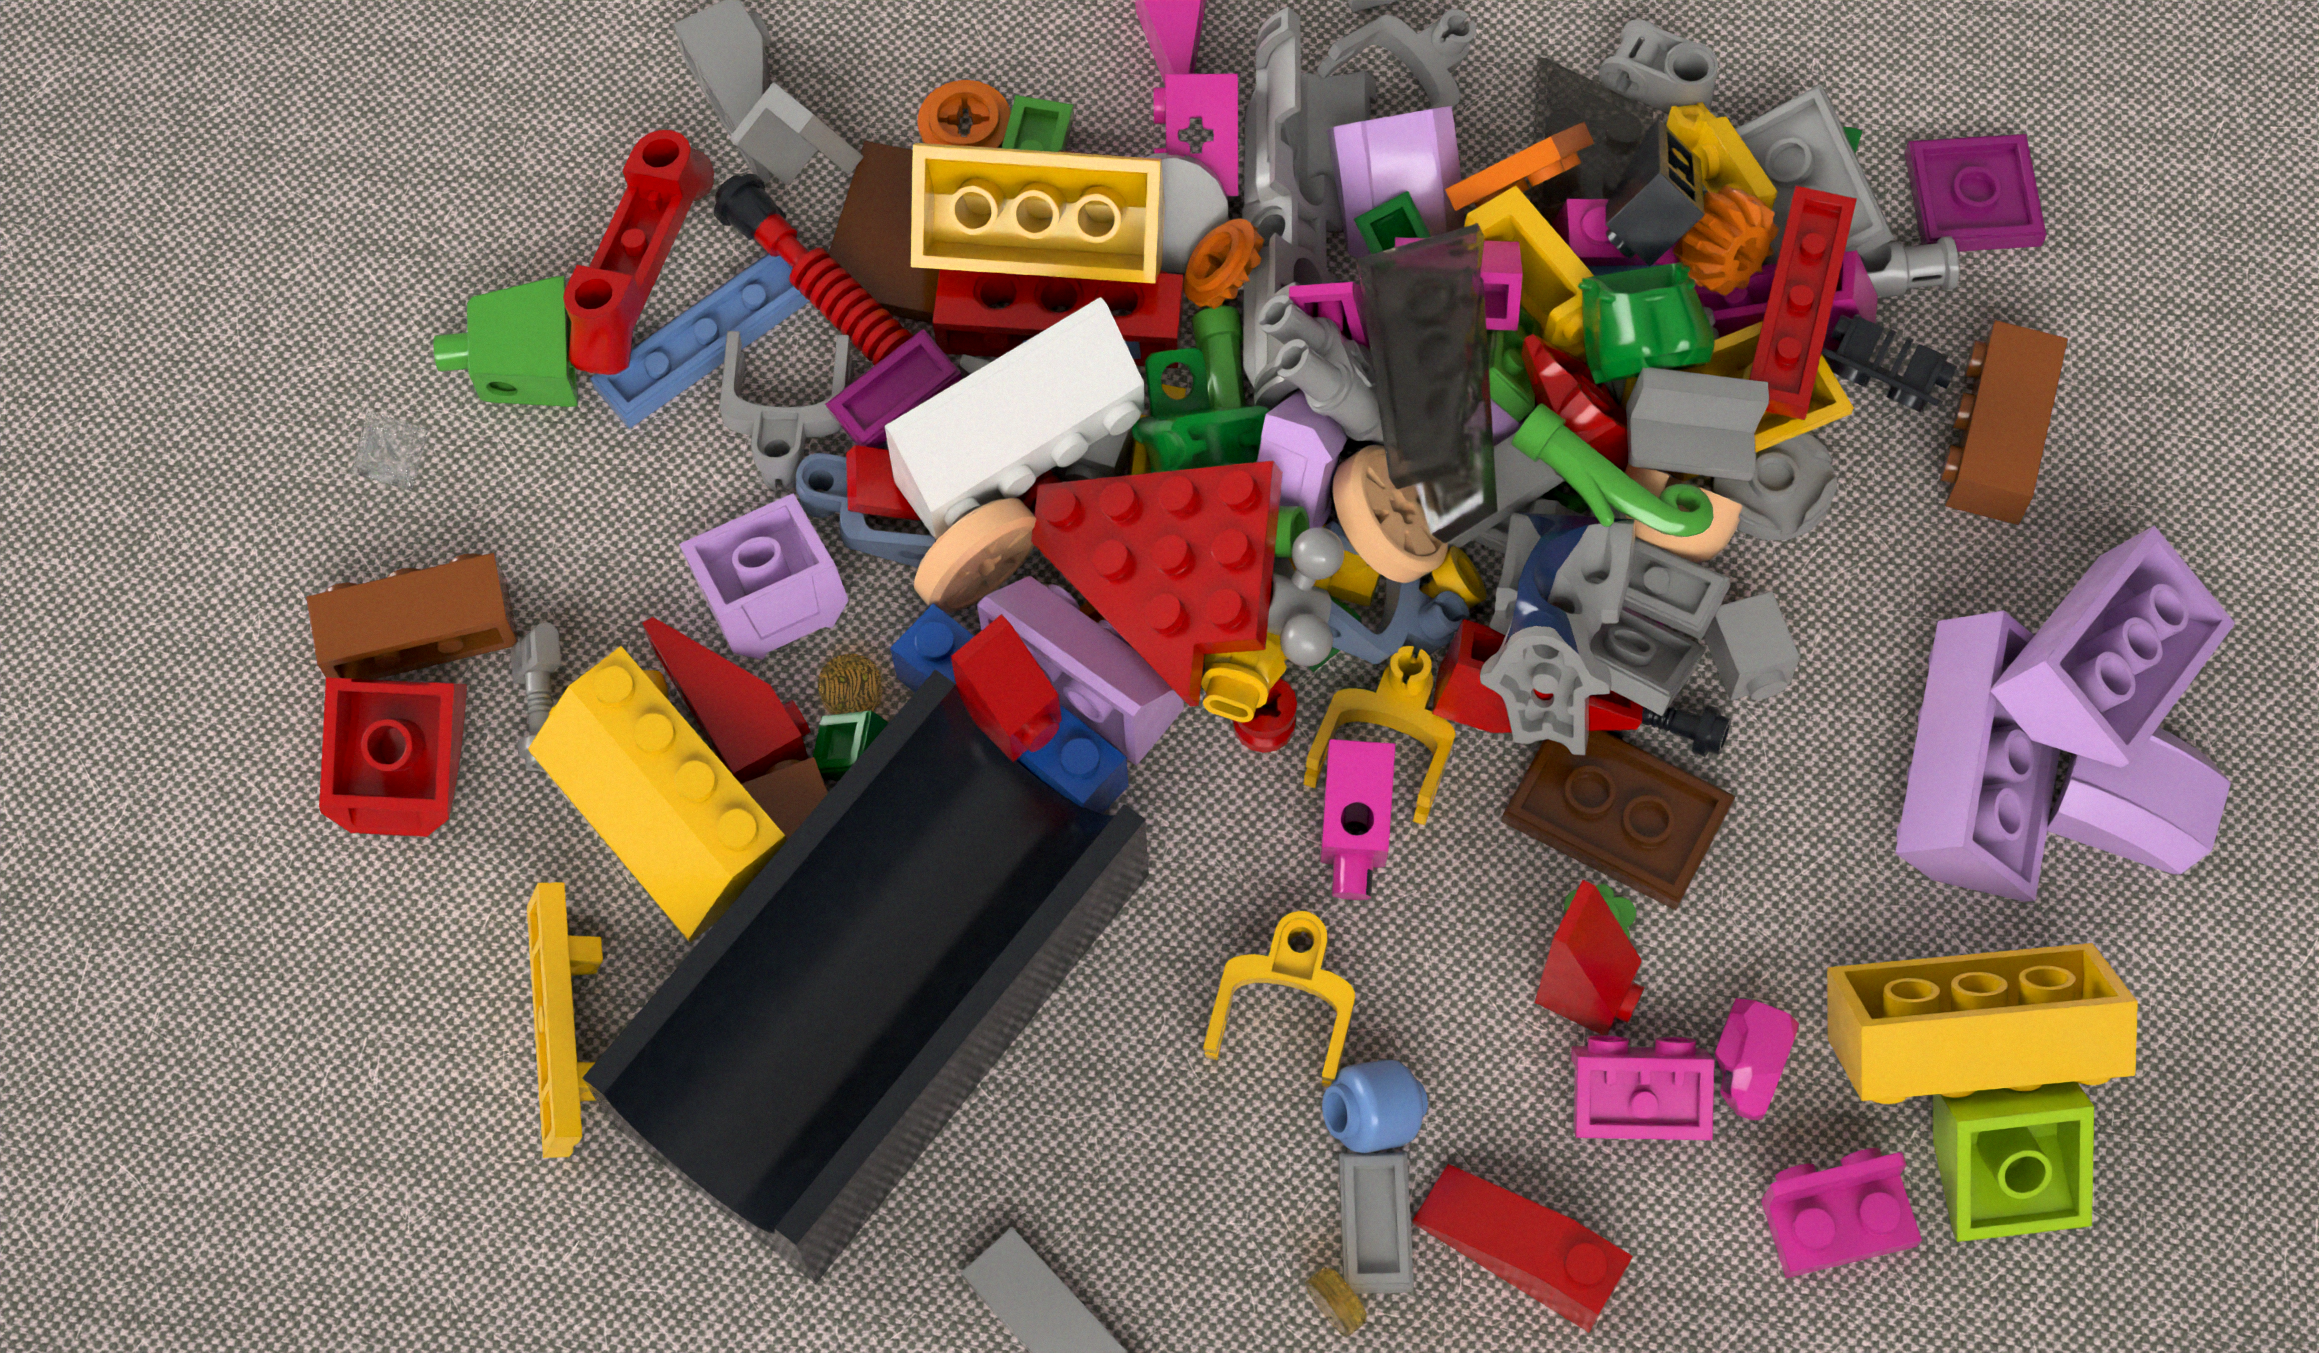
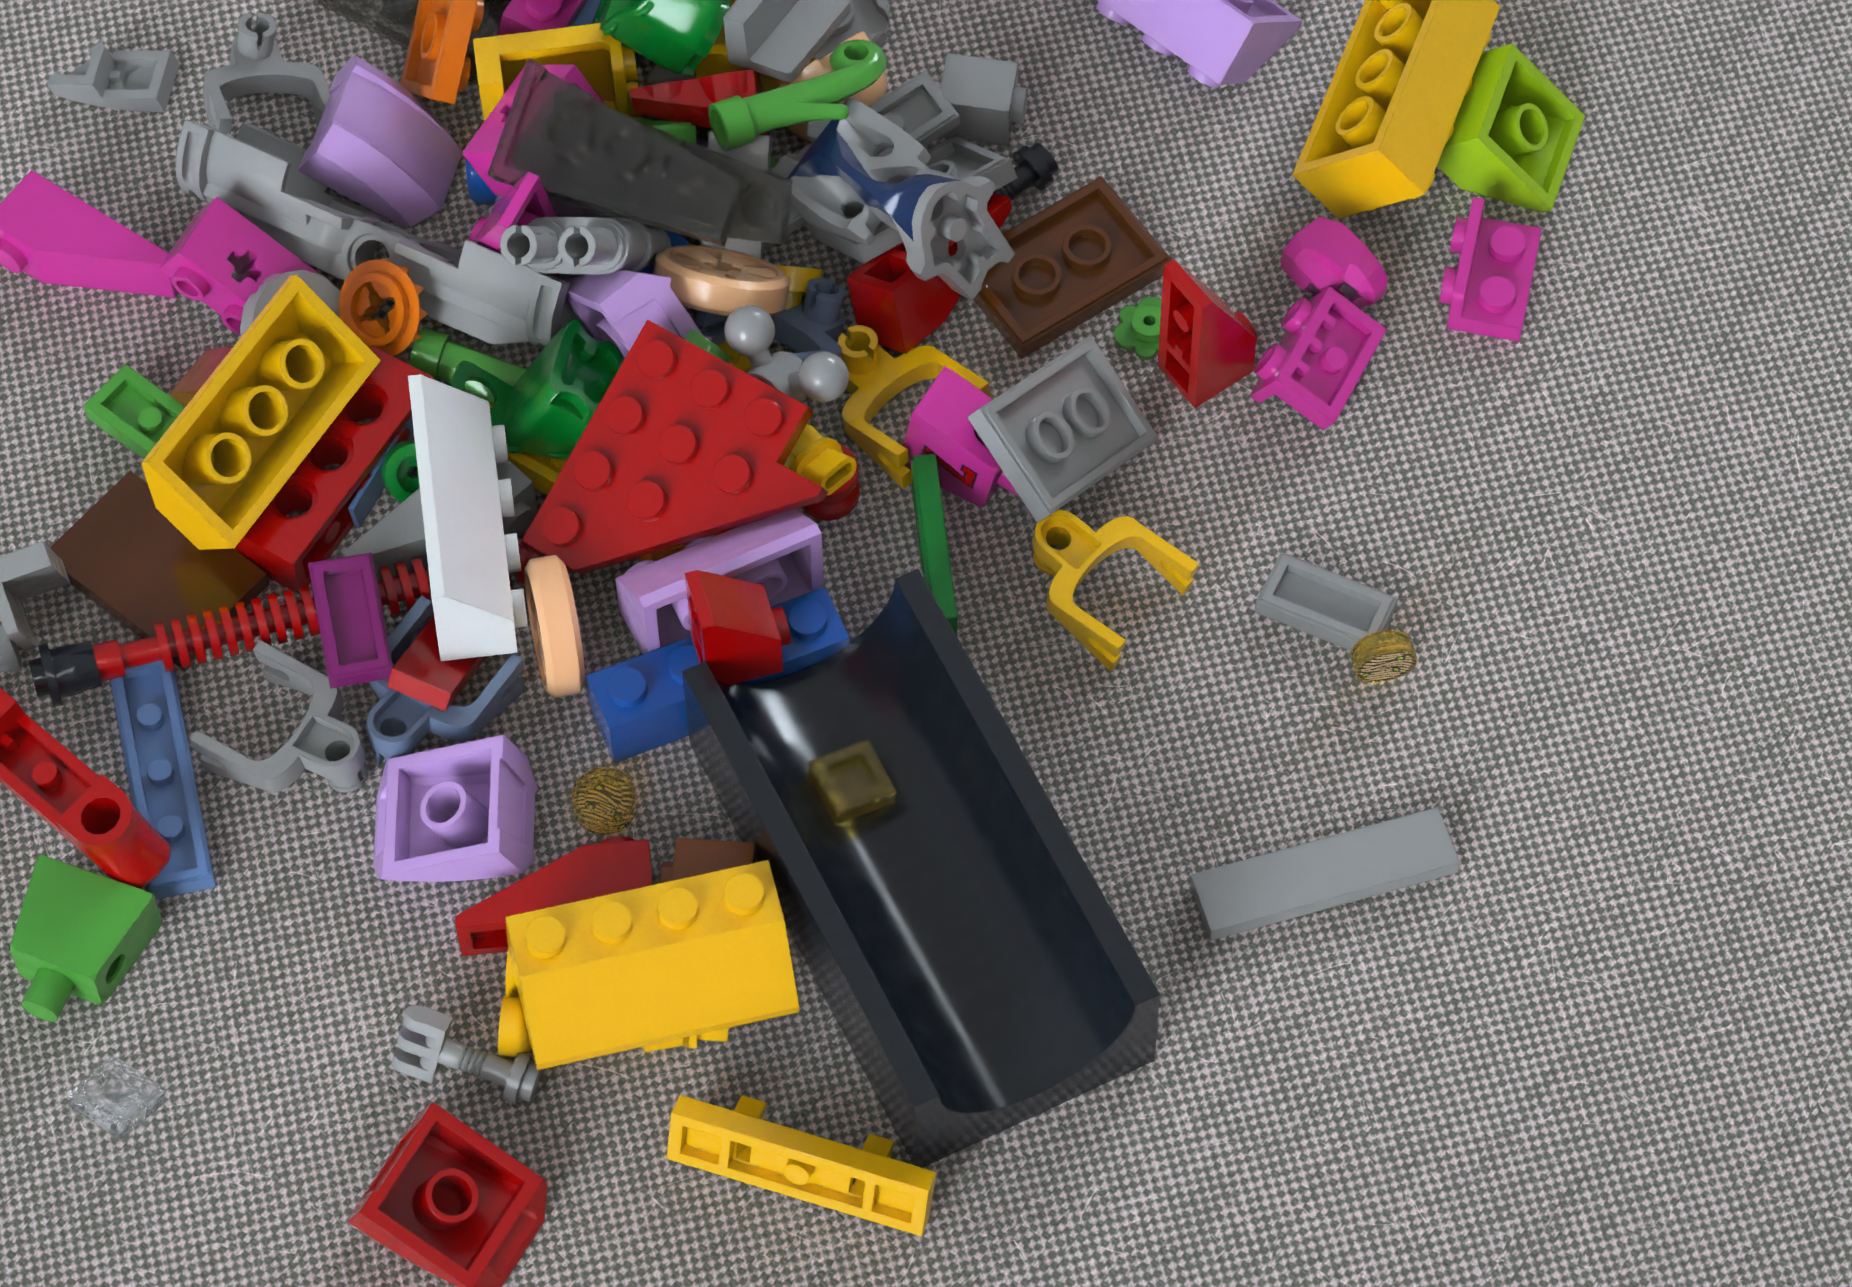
camera: 65 degrees left, 5 degrees down
(412, 619) = (317, 1139): dark orange brick -> none
(843, 740) = (663, 816): green slope -> none
(937, 876) = (851, 782): none -> clear yellow tile
(945, 105) = (69, 444): orange gear -> none
(1235, 838) = (932, 534): none -> green tile
(1374, 1106) = (1233, 550): medium blue head -> none
(1391, 220) = (435, 169): green slope -> none
(1408, 886) = (1063, 428): none -> light grey tile
(1525, 1244) = (1407, 498): red slope -> none

